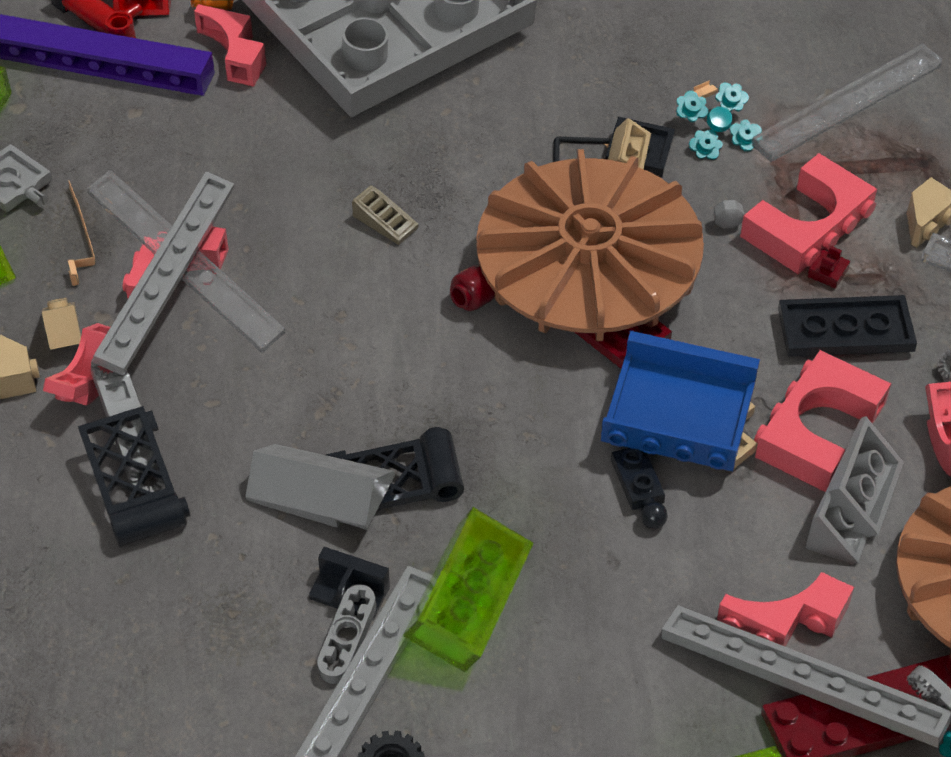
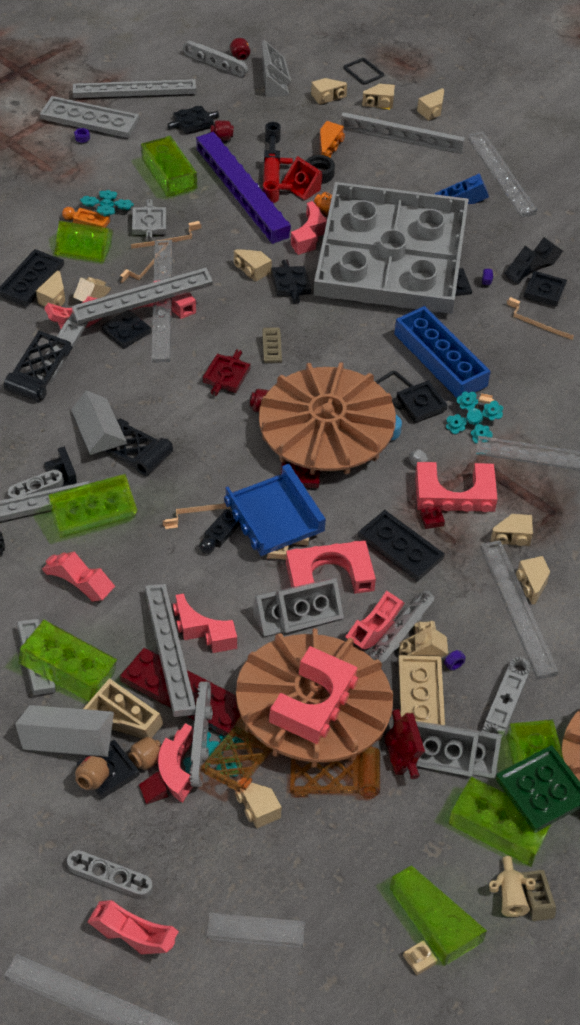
camera: 45 degrees right, 0 degrees up
(77, 142) = (192, 226): none -> light nougat piece
(174, 339) = (126, 329): none -> black plate
(222, 133) = (253, 263): none -> tan slope
(295, 122) = (290, 281): none -> black plate
(379, 290) = (226, 373): none -> dark red plate
(552, 690) = (71, 568): none -> coral arch
(572, 528) = (173, 523): none -> light nougat piece
(589, 74) = (441, 352): none -> blue brick
(630, 141) = (411, 397): tan slope -> none

